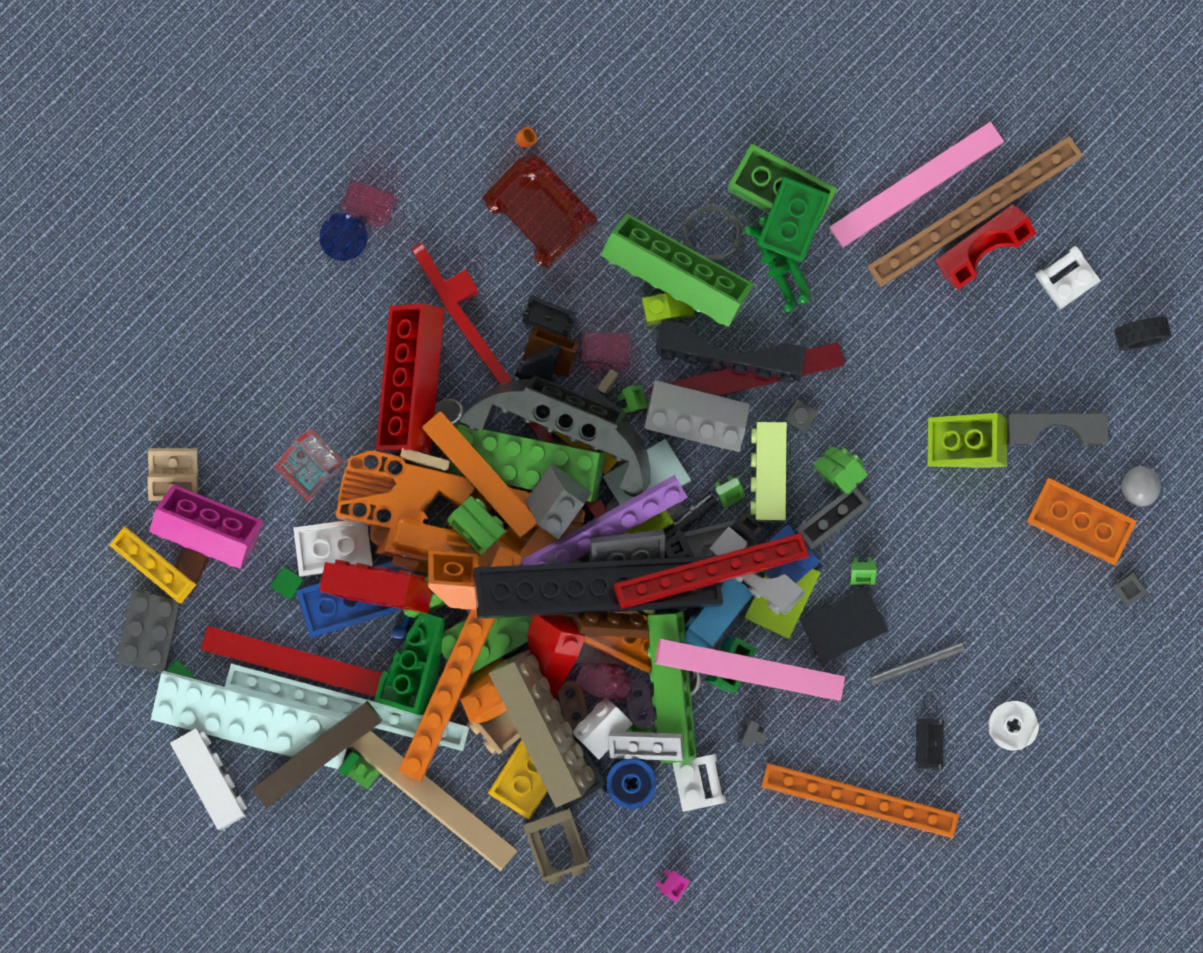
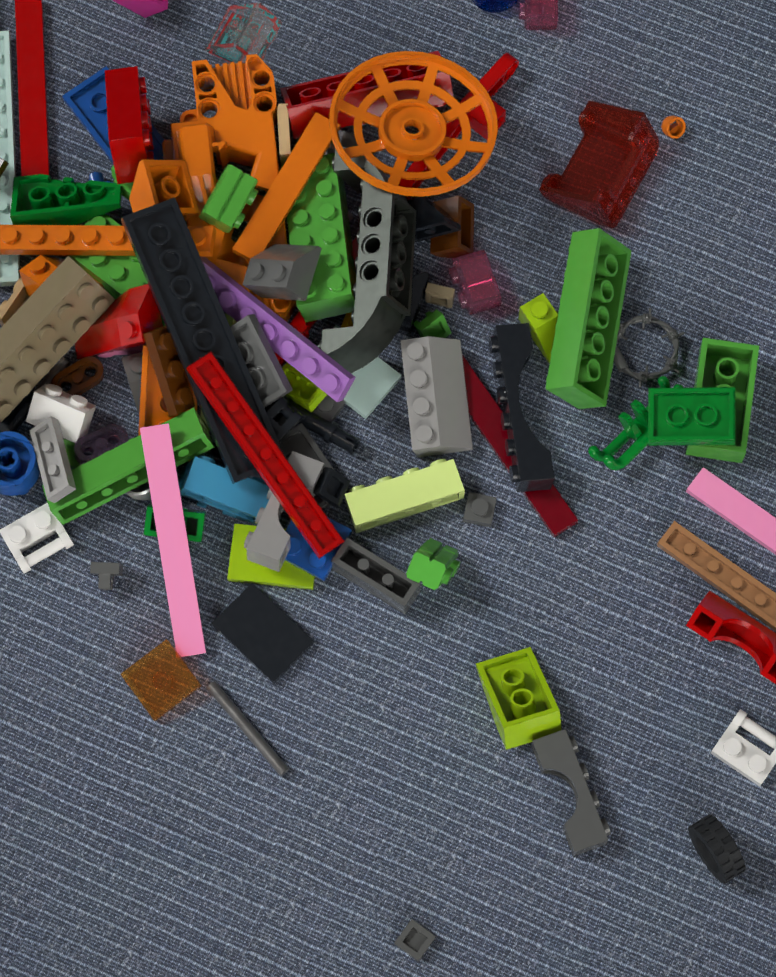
camera: 70 degrees right, 10 degrees down
(287, 583) = (112, 56): green tile -> none
(329, 542) = (167, 83): white plate -> none
(464, 337) = (417, 114): none -> orange dish
(548, 316) = (488, 213): black hinge -> none
(604, 680) = (110, 393): clear pink brick -> none
(729, 492) = (367, 460): bright green tile -> none
(855, 719) = (161, 680): none -> clear orange plate
(860, 800) = (72, 719): orange tile -> none
(863, 572) = (328, 632): bright green tile -> none
(929, 744) = (159, 771): black hinge -> none
(1000, 730) = (222, 872): white plate -> none
(1081, 521) = (474, 856): orange plate -> none
(1141, 486) = (541, 912): light grey piece -> none

